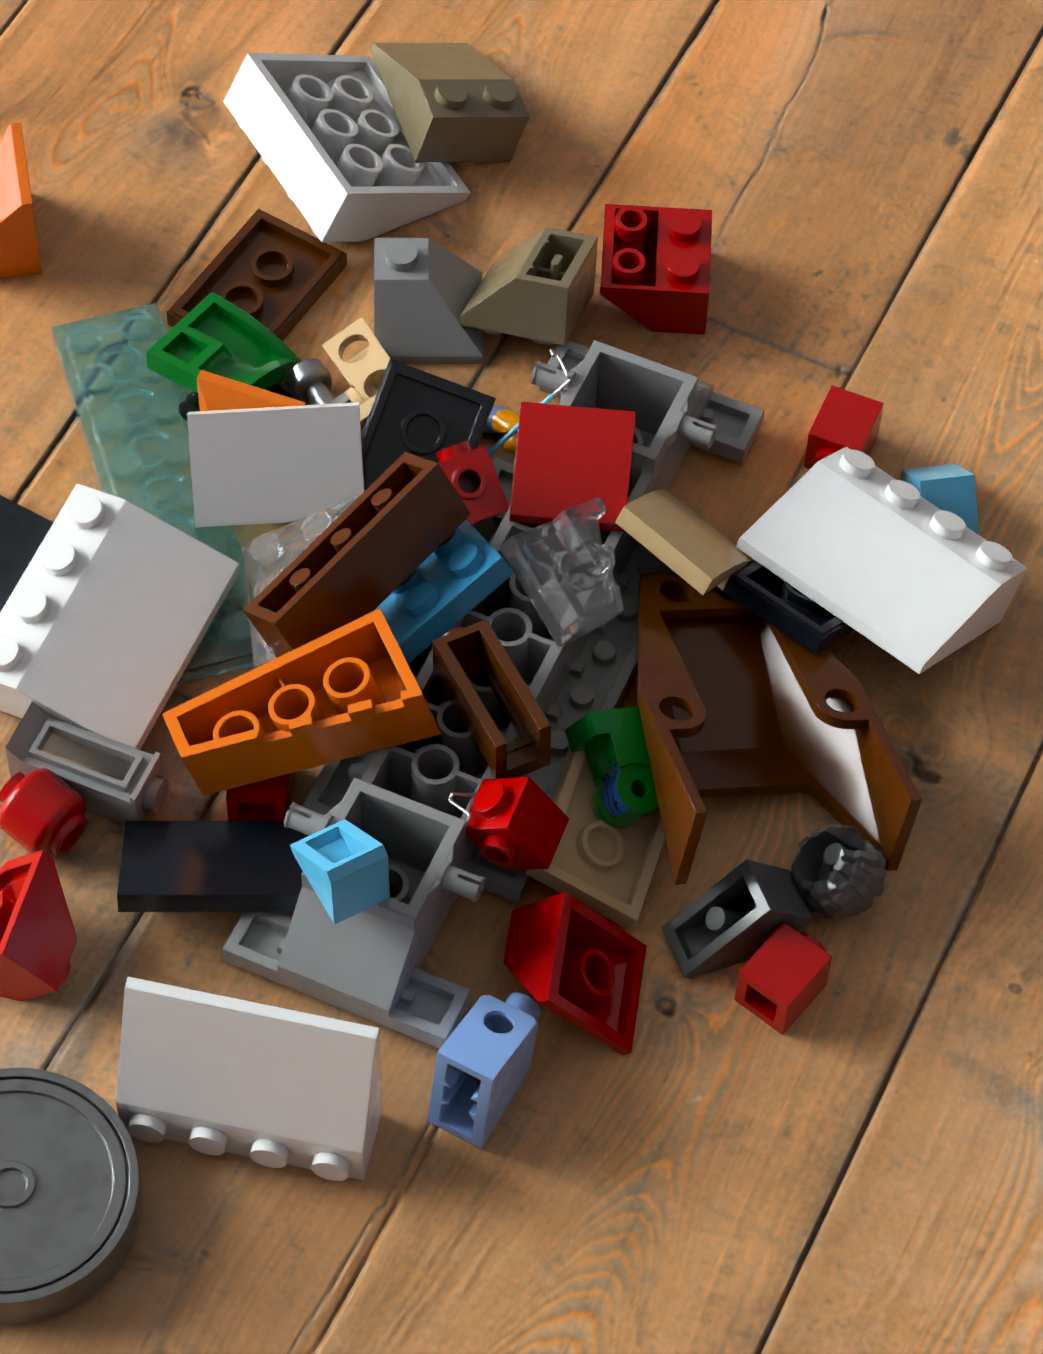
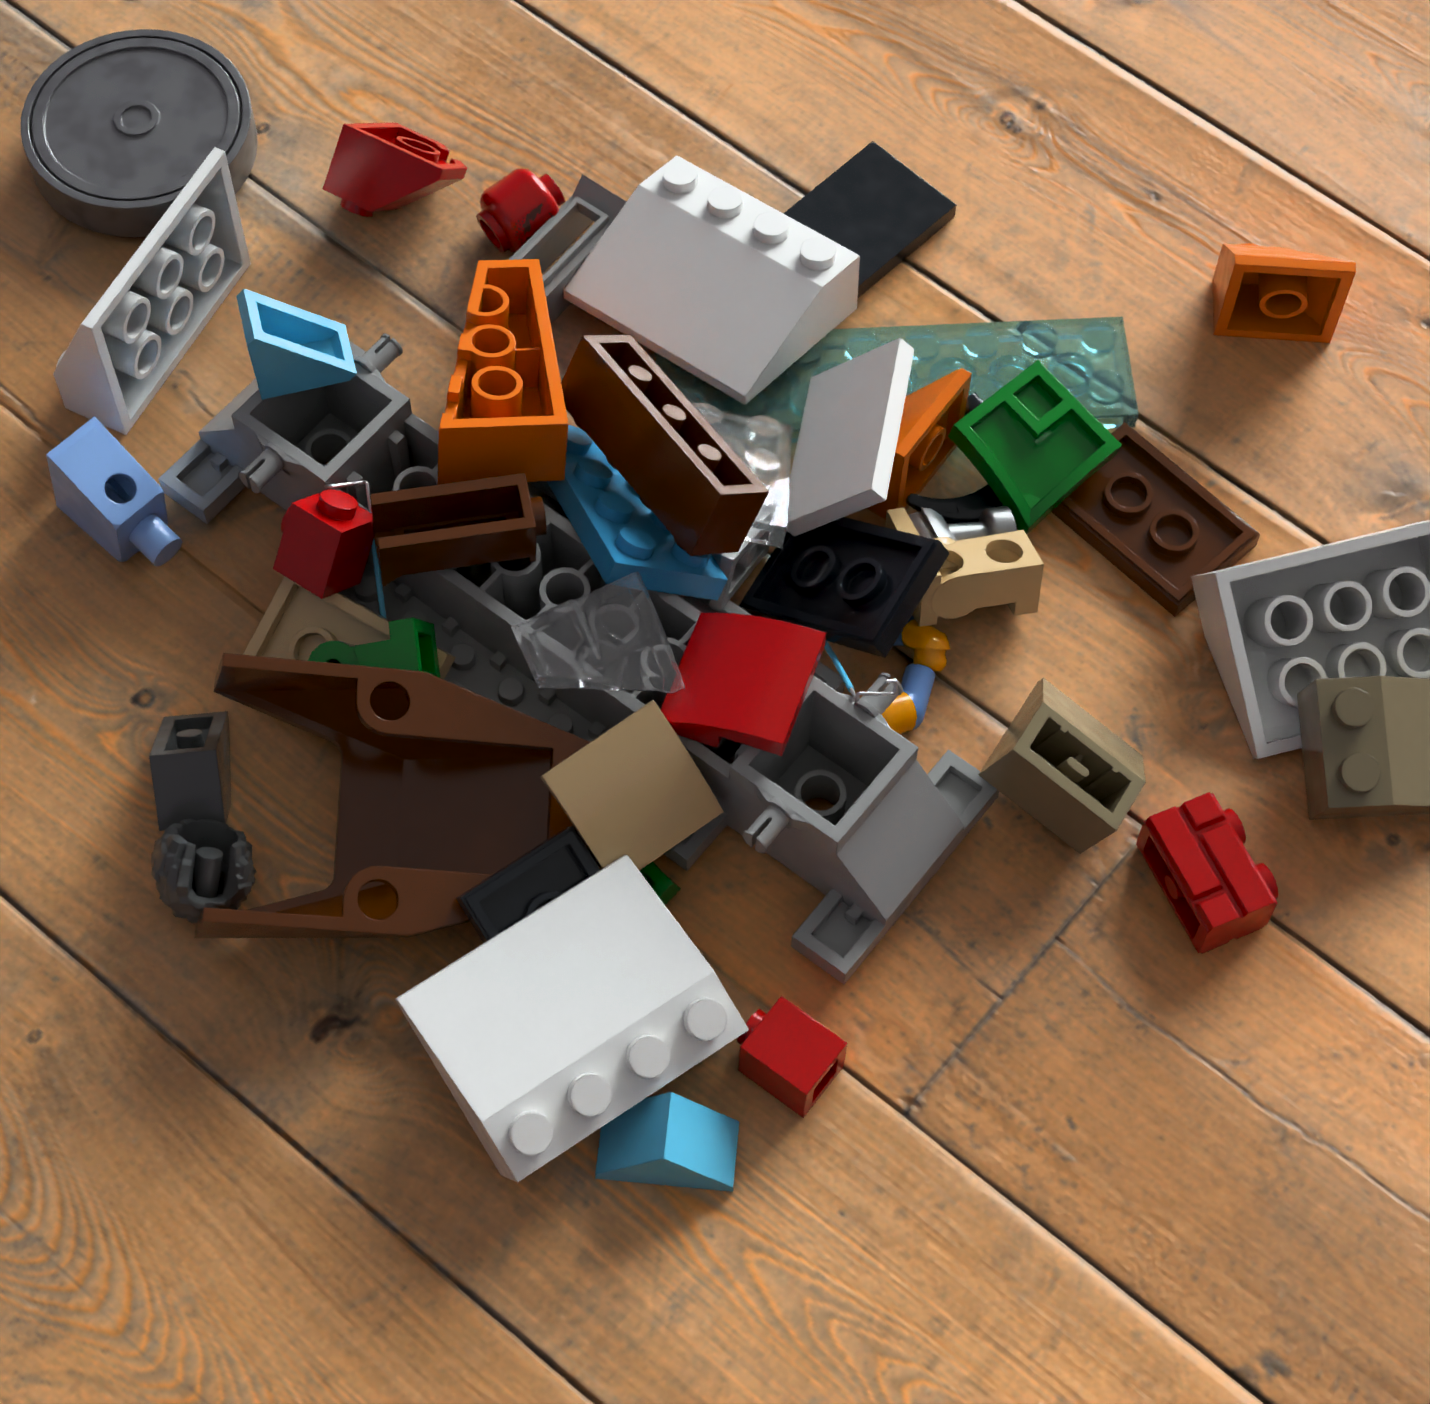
camera: 105 degrees right, 5 degrees up
(208, 867) = (423, 307): black tile -> none
(420, 303) = (1093, 652): light grey slope -> none
(474, 480) = (778, 592): red brick -> none
(578, 966) = (183, 604): red slope -> none
(579, 198) = (1208, 871): none -> red brick
(658, 265) = (1086, 911): red slope -> none
(783, 977) = (111, 792): red brick -> none

